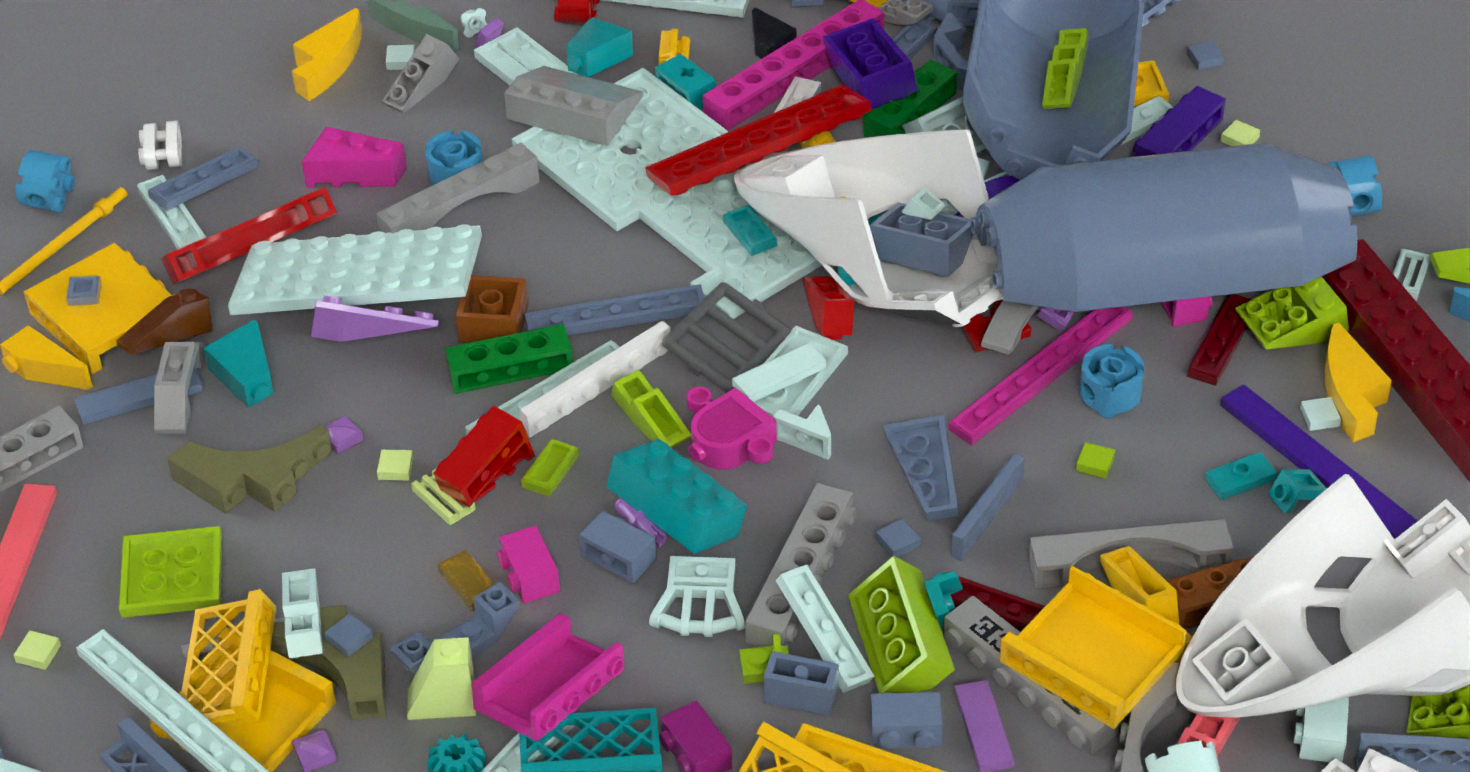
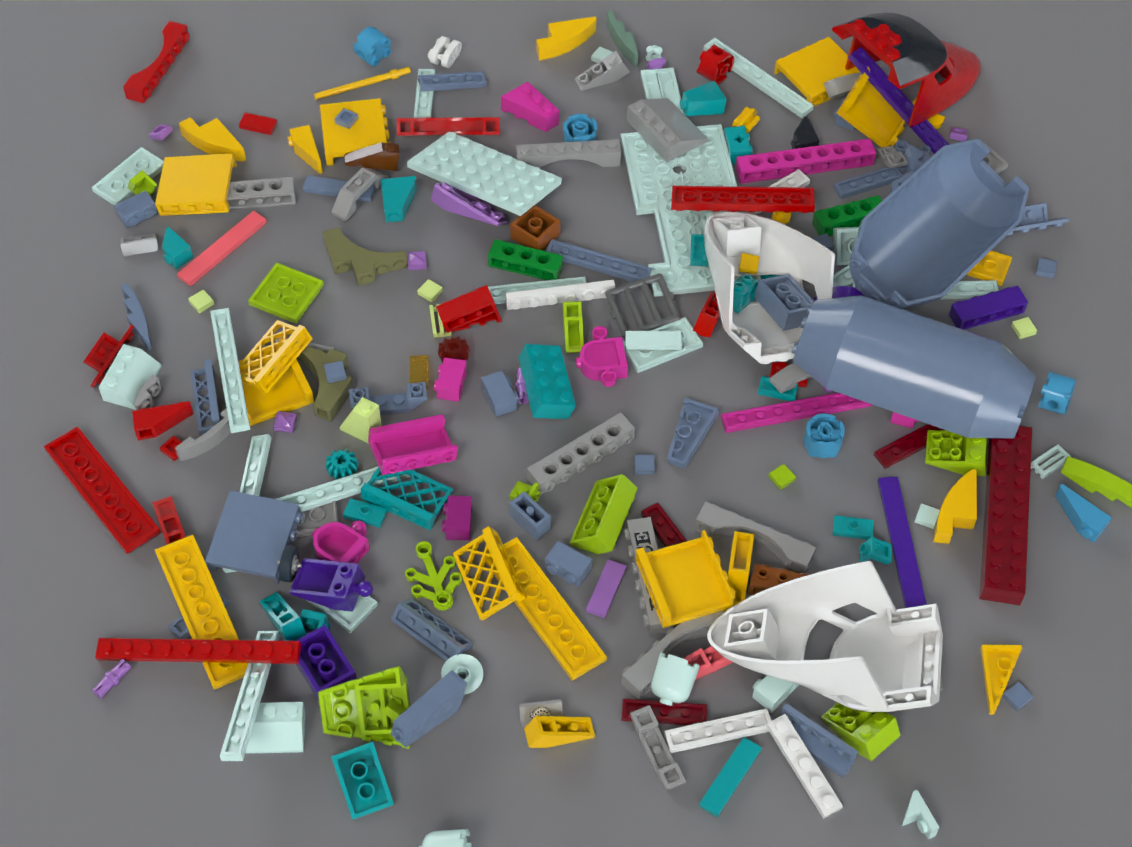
camera: 30 degrees right, 10 degrees up
(301, 613) = (320, 348): light aqua slope -> none
(498, 521) = (453, 349): none -> clear red gear
(550, 467) = (503, 332): lime tile -> none
(699, 578) = (527, 432): light aqua plate -> none
(806, 434) = (643, 382): light aqua slope -> none
(824, 627) = (563, 493): light aqua plate -> none
(870, 63) = (838, 182): dark purple brick -> none
(924, 205) = (797, 283): light aqua slope -> none
(939, 592) = (634, 507): teal bracket -> none
(986, 360) = (767, 389): none -> teal plate
(987, 506) = (702, 472): sand blue tile -> none
(1065, 68) = (952, 238): lime slope -> none

